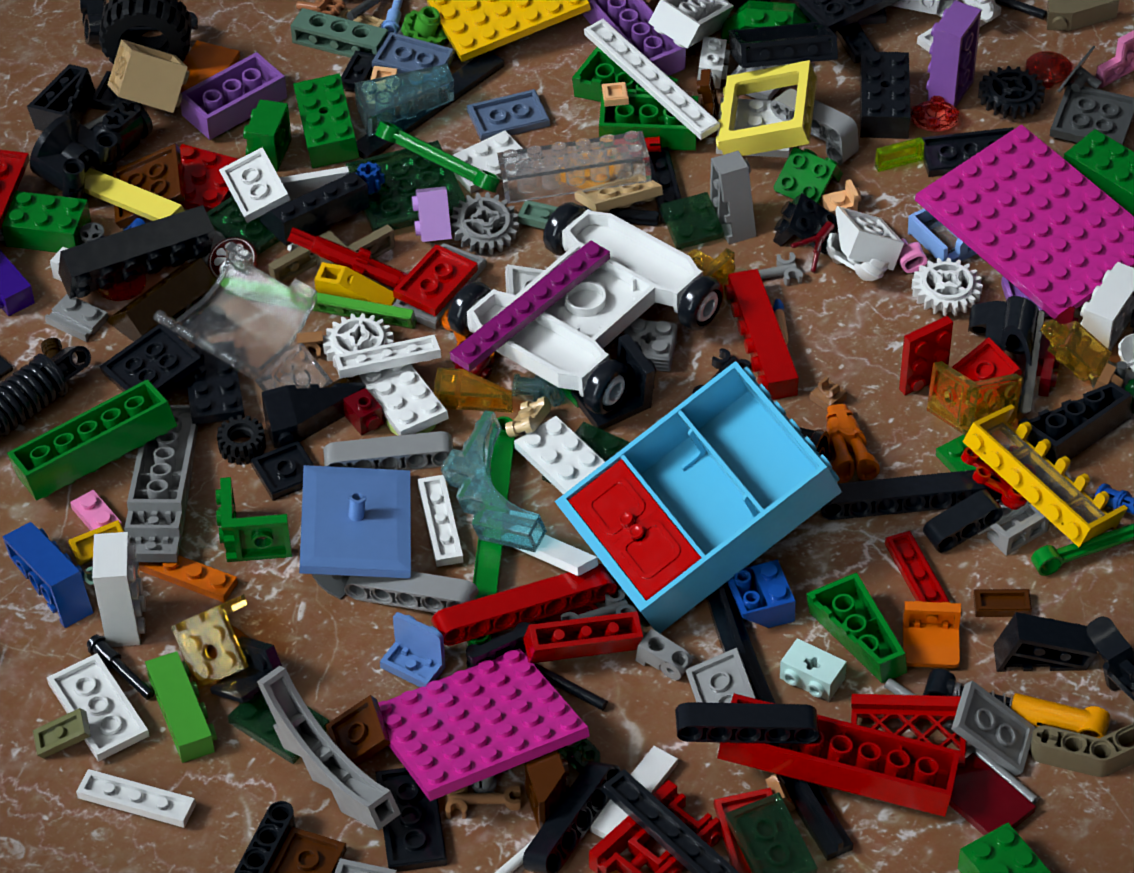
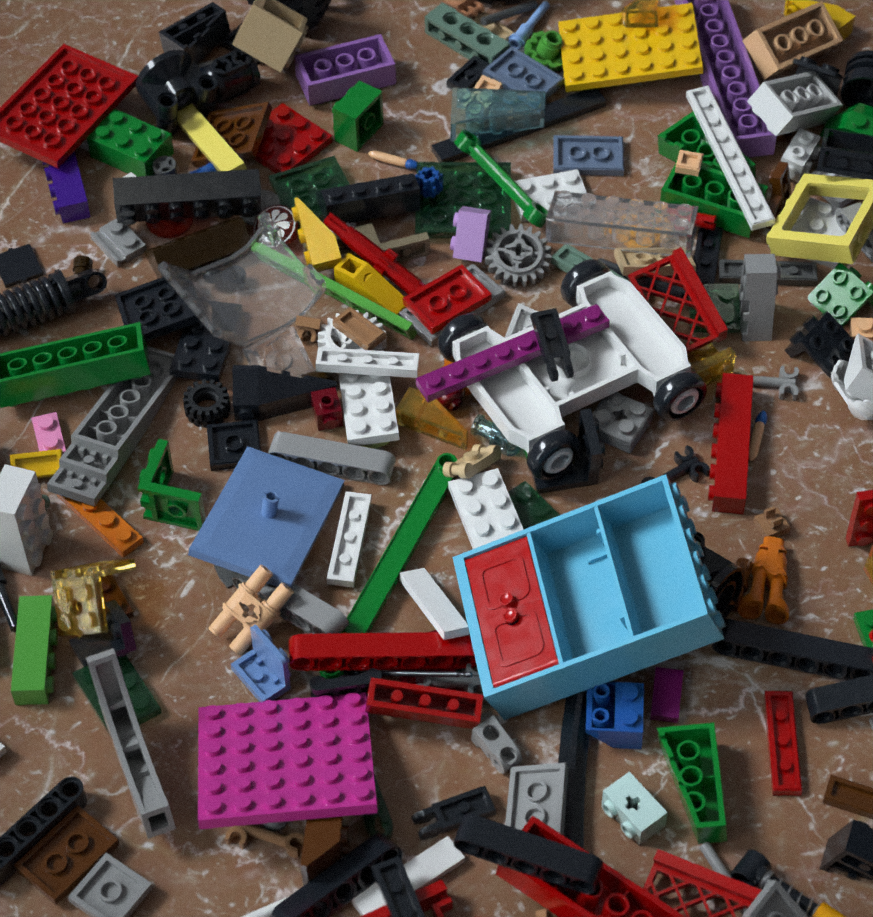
camera: 20 degrees right, 5 degrees up
(207, 60) = (335, 30): orange tile -> none
(254, 184) = (323, 160): white plate -> none
(284, 255) = (320, 241): none -> yellow slope
(304, 183) = (365, 171): white tile -> none
(307, 168) = (410, 164): none -> light nougat piece
(326, 120) = (417, 115): green brick -> none
(360, 730) = (177, 731): reddish brown plate -> none
(365, 329) = (359, 329): none -> medium nougat tile
(374, 591) = (237, 608): none -> light nougat pin
(416, 835) = (186, 853): black tile -> none
(494, 516) = (391, 524): clear light blue arch -> none
(568, 284) = (552, 342): none -> black hinge
(569, 613) = (415, 673): none -> black piece
(573, 688) = (396, 747): black bar -> none
(648, 725) = (451, 810): none -> black hinge
(672, 207) = (693, 289): none -> red fence
(699, 182) = (791, 272): none -> dark grey tile
(798, 567) = (666, 694): none -> magenta tile
(818, 239) = (826, 363): dark red plant -> none
(931, 634) = (766, 810): orange bracket -> none

